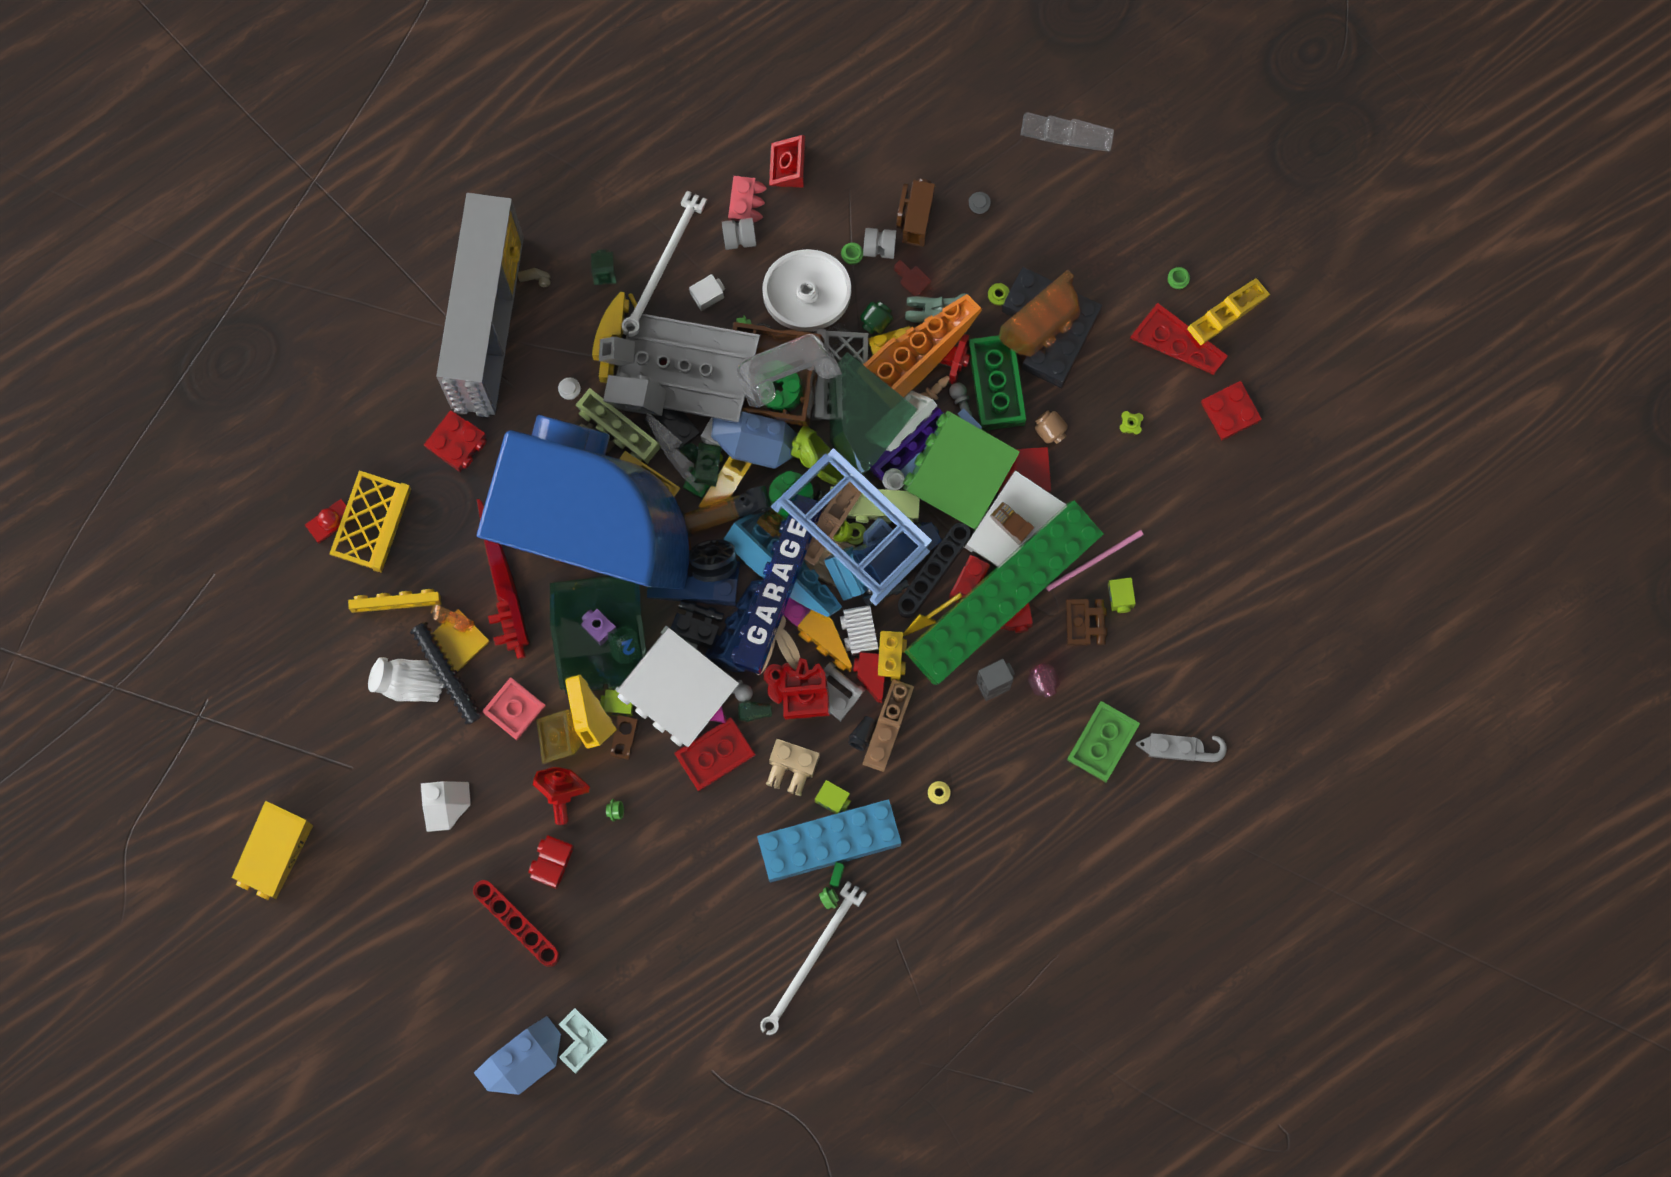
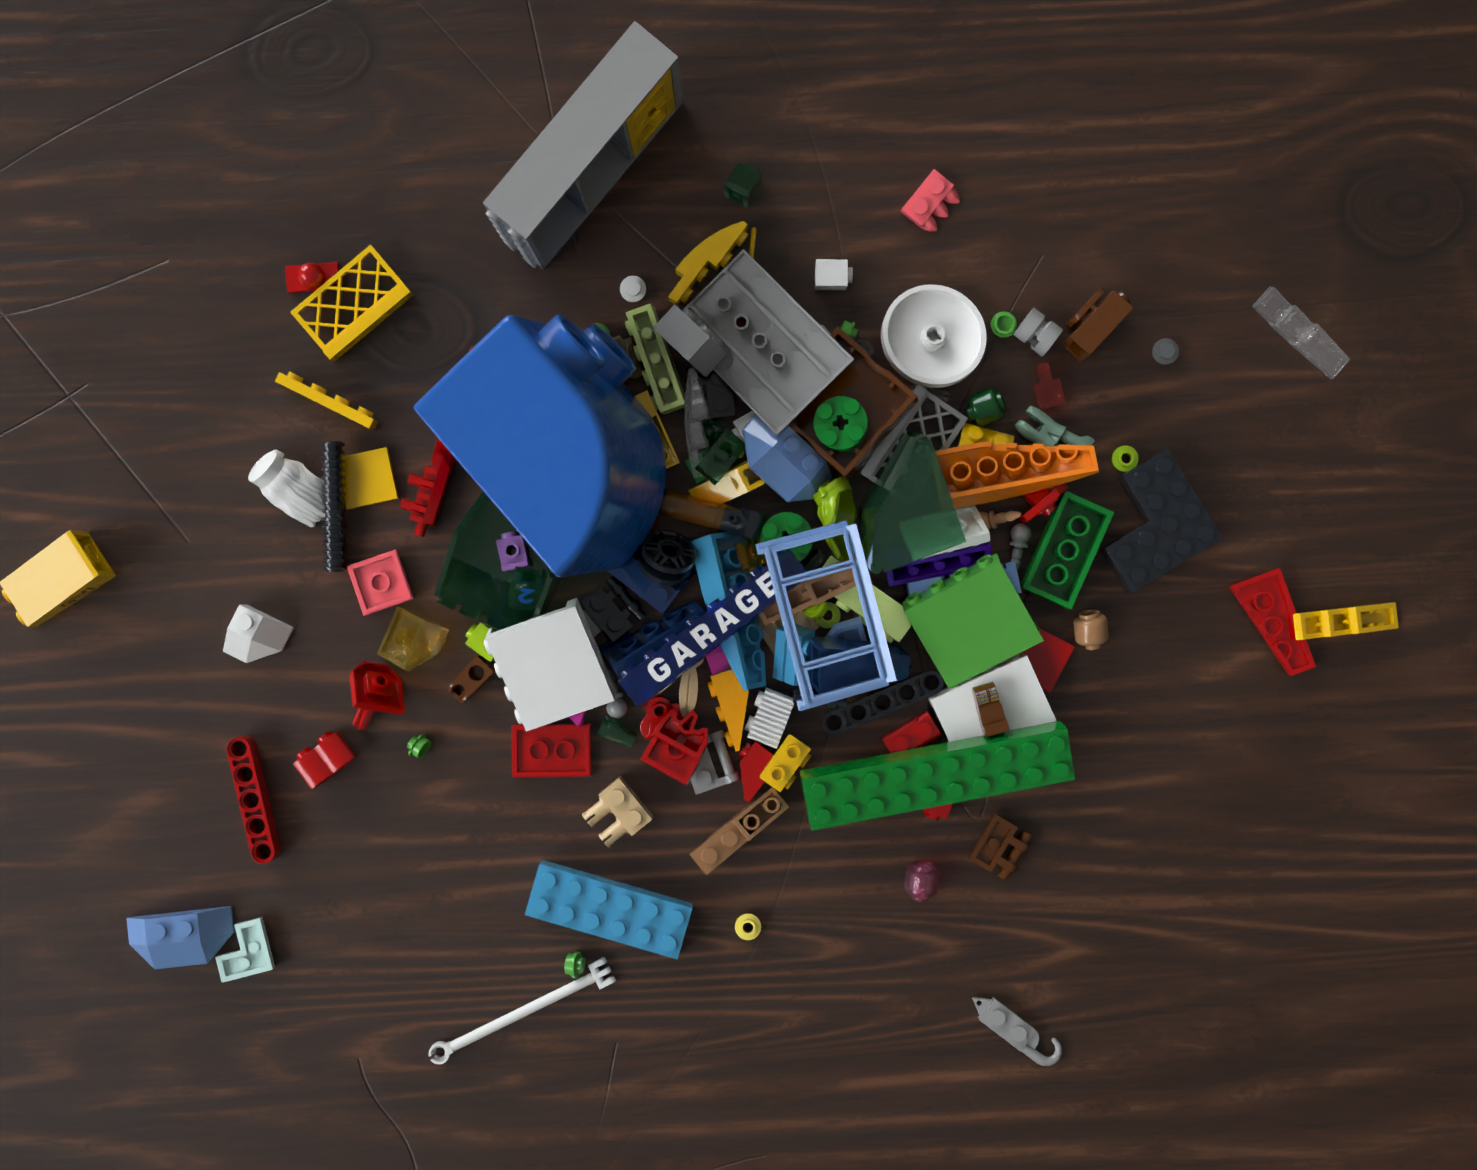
camera: 30 degrees right, 10 degrees up
(444, 615) = (364, 446): clear orange plate -> none
(456, 441) = (487, 273): red plate -> none
(537, 274) = (671, 149): dark tan arm -> none
(588, 716) = (444, 642): yellow slope -> none
(616, 351) = (701, 281): light grey brick -> none
(691, 206) = (871, 175): white hinge -> none
(738, 233) = (901, 233): light grey wheel -> none
(762, 369) = (857, 405): clear windscreen -> none
(787, 162) = (997, 189): red slope -> none
(833, 798) = (639, 868): lime brick -> none
(837, 875) = (595, 948): green tile -> none
(862, 734) = (708, 822): black cone -> none
(893, 479) = (898, 588): white plate -> none
(924, 621) = (837, 746): yellow piece -> none
(995, 679) = (873, 857): dark grey brick -> none
(1042, 318) = (1156, 519): clear orange windscreen -> none
(1103, 741) = (942, 977): bright green plate -> none
(1113, 549) = (1069, 789): bright pink axle -> none
(1121, 595) = (1053, 843): lime brick -> none
(1127, 427) = (1174, 681): lime plate -> none
(1178, 278) = (1317, 554): bright green plate -> none
(1231, 410) = (1282, 722): red plate -> none

